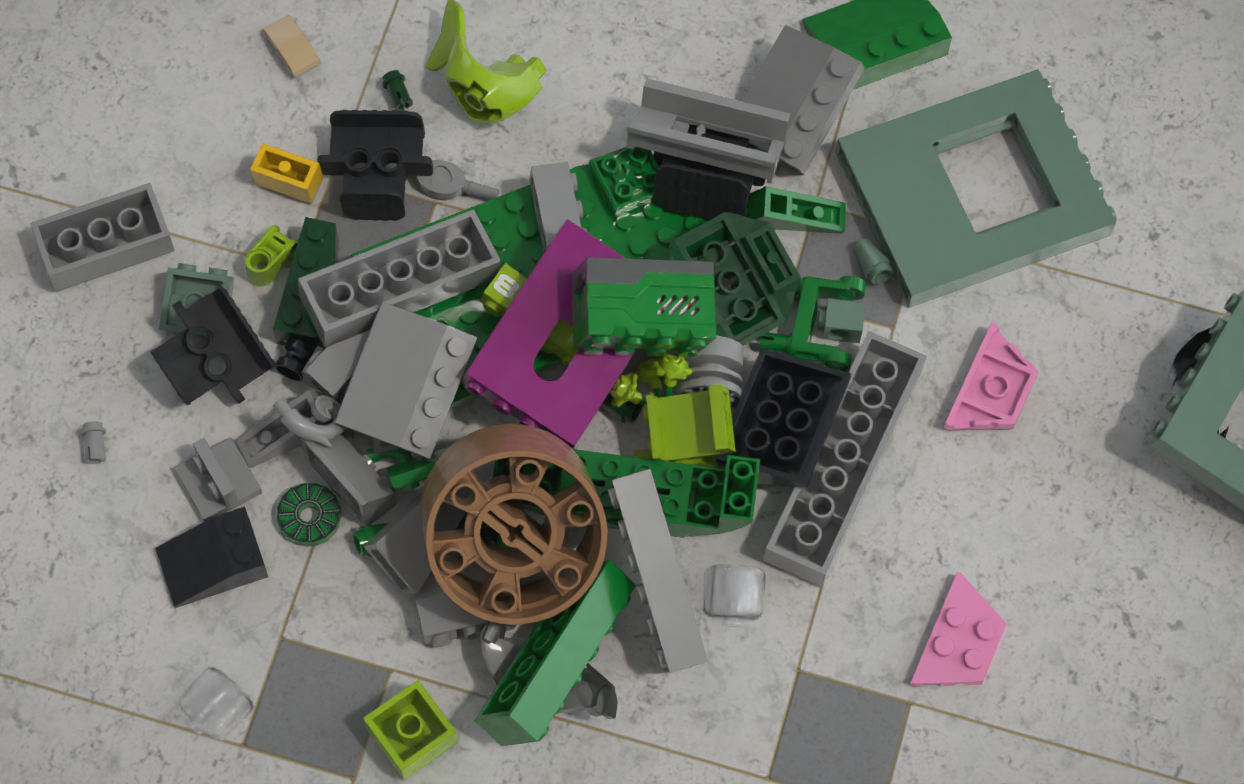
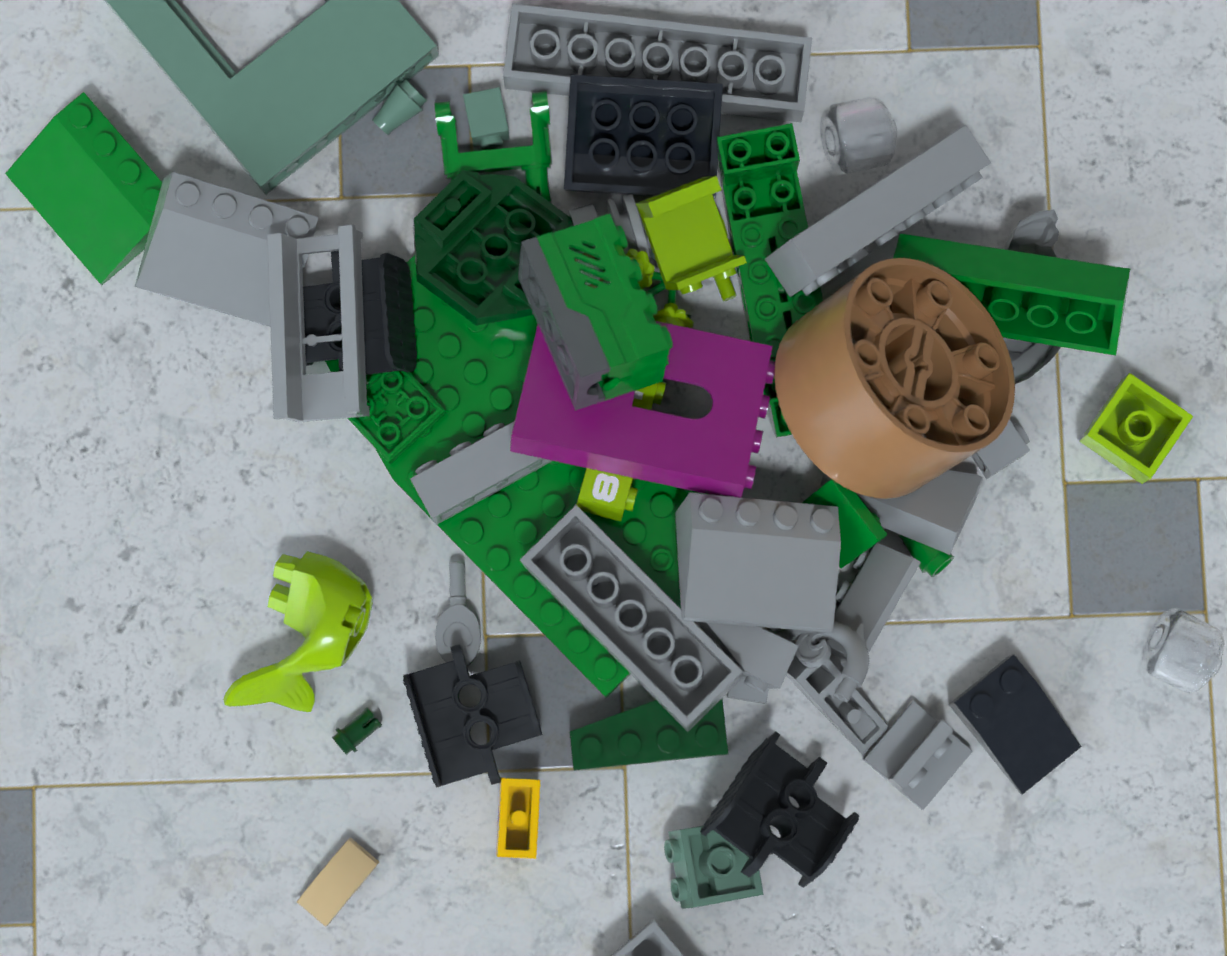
camera: 105 degrees left, 15 degrees up
(93, 442) = (925, 914): light grey pin -> none
(272, 250) = (621, 798): lime piece -> none
(294, 359) = (737, 720): black wheel -> none
(303, 497) = (945, 637): tile -> none
(796, 211) = (366, 205): green slope -> none

